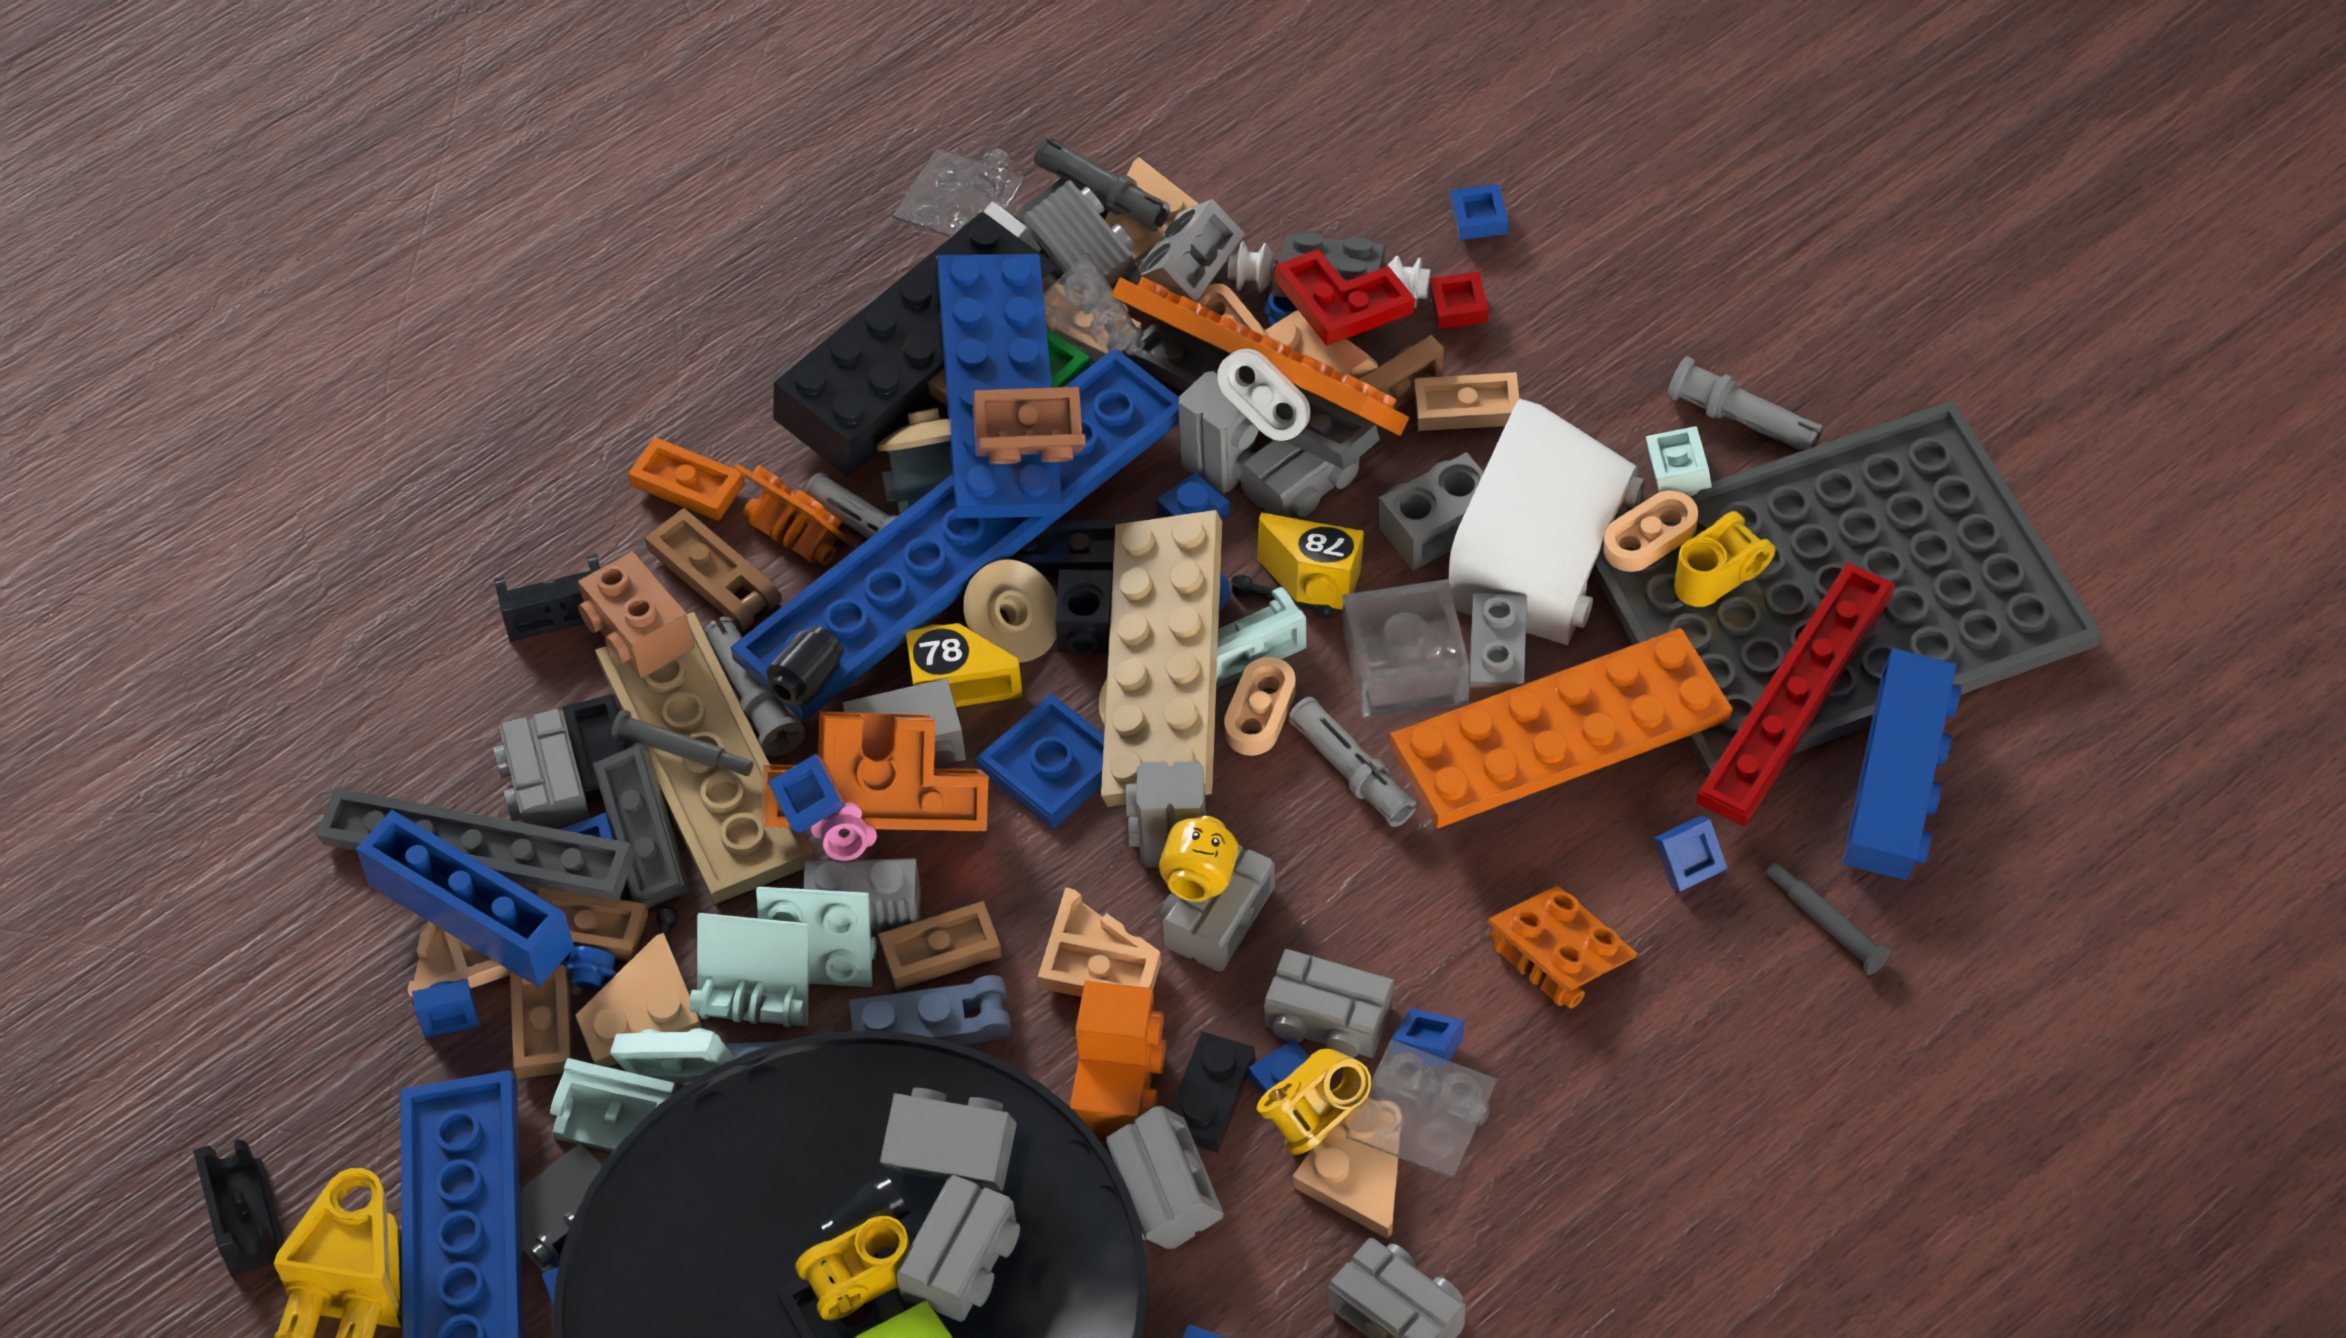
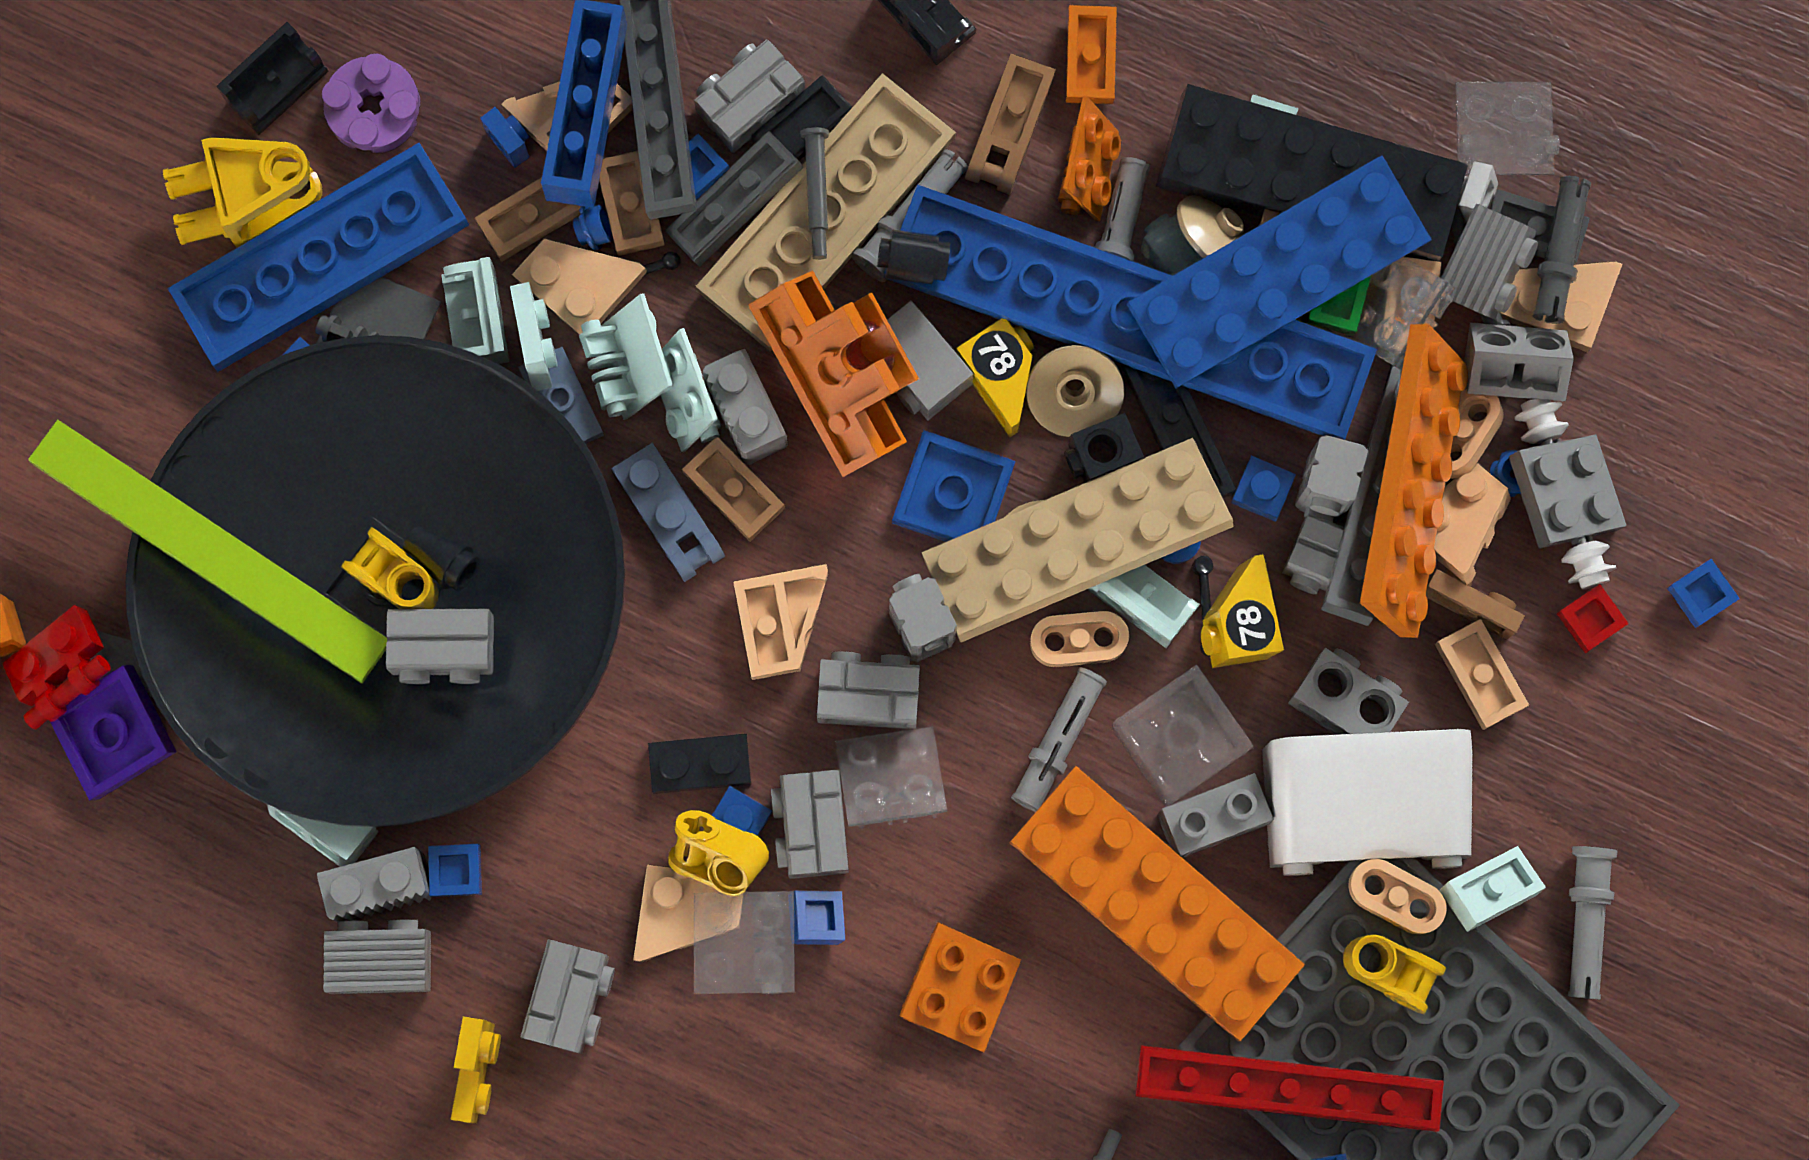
camera: 60 degrees right, 25 degrees up
(320, 1099) = (374, 77): none -> medium lavender plate
(635, 615) = (917, 89): nougat brick -> none
(807, 793) = (774, 326): blue plate -> none
(845, 845) = (769, 369): bright pink plate -> none
(948, 1139) = (524, 591): light grey brick -> none
(1028, 423) = (1224, 324): nougat bracket -> none
(1117, 1055) = (673, 683): orange brick -> none
(1165, 1177) = (593, 766): light grey brick -> none
(1198, 858) = (873, 665): yellow head -> none
(1261, 398) = (1350, 507): white plate -> none
(1317, 915) = (891, 777): none -> clear hinge
(1340, 307) = (1504, 526): red plate -> none
(1690, 853) = (1090, 1060): plate -> none

